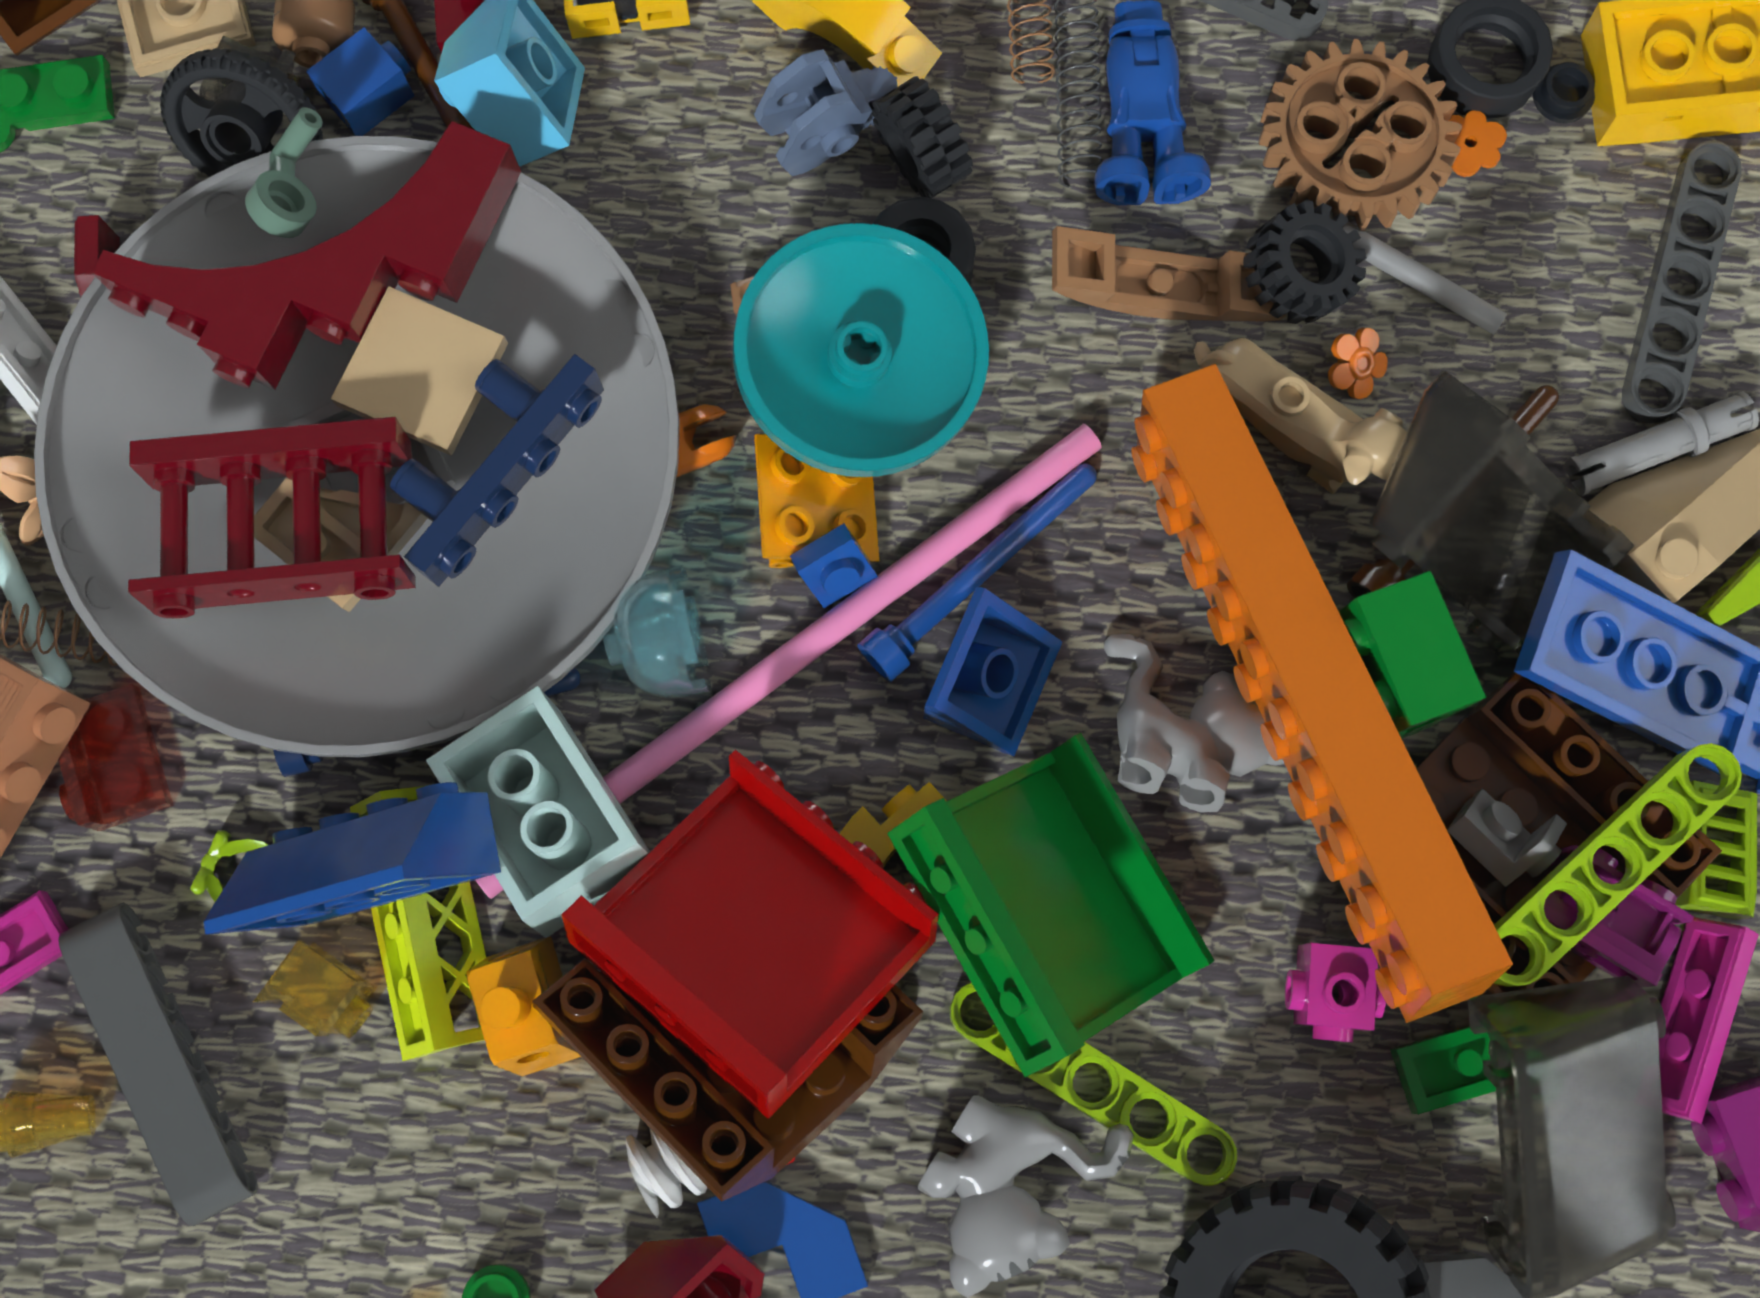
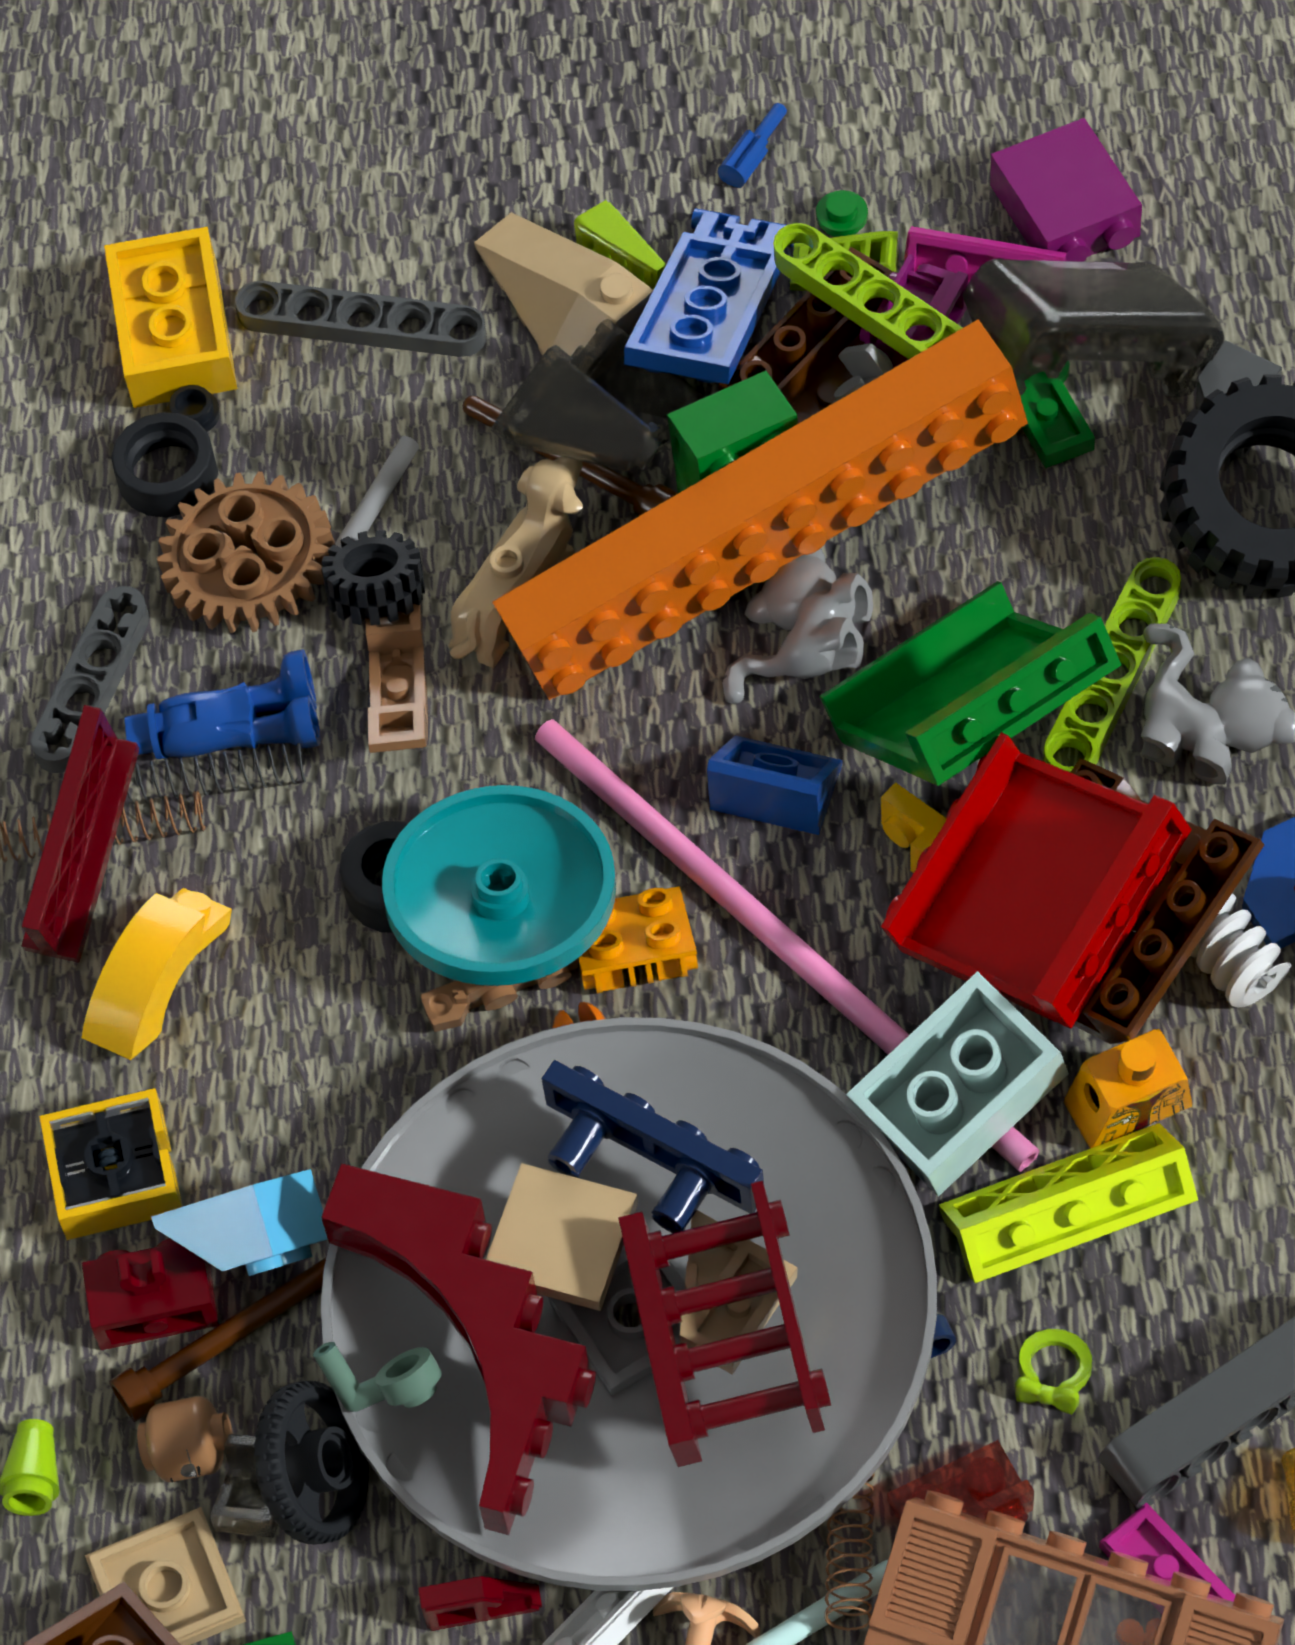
camera: 90 degrees left, 20 degrees down
(319, 992) = (1149, 1270): clear yellow window -> none
(360, 861) = (1032, 1210): blue slope -> none
(362, 81) = (243, 1378): blue brick -> none
(659, 636) = (782, 1011): clear light blue cylinder -> none
(822, 108) = (259, 962): sand blue hinge -> none
(833, 565) = (695, 904): blue plate -> none
(890, 648) = (762, 859): blue piece -> none
(922, 137) = (280, 877): black tyre -> none
(1311, 985) = (1006, 498): dark pink brick -> none
(1357, 362) = (455, 537): orange plant -> none
(1486, 142) = (241, 461): orange plant -> none
(1686, 433) = (499, 307): light grey pin -> none

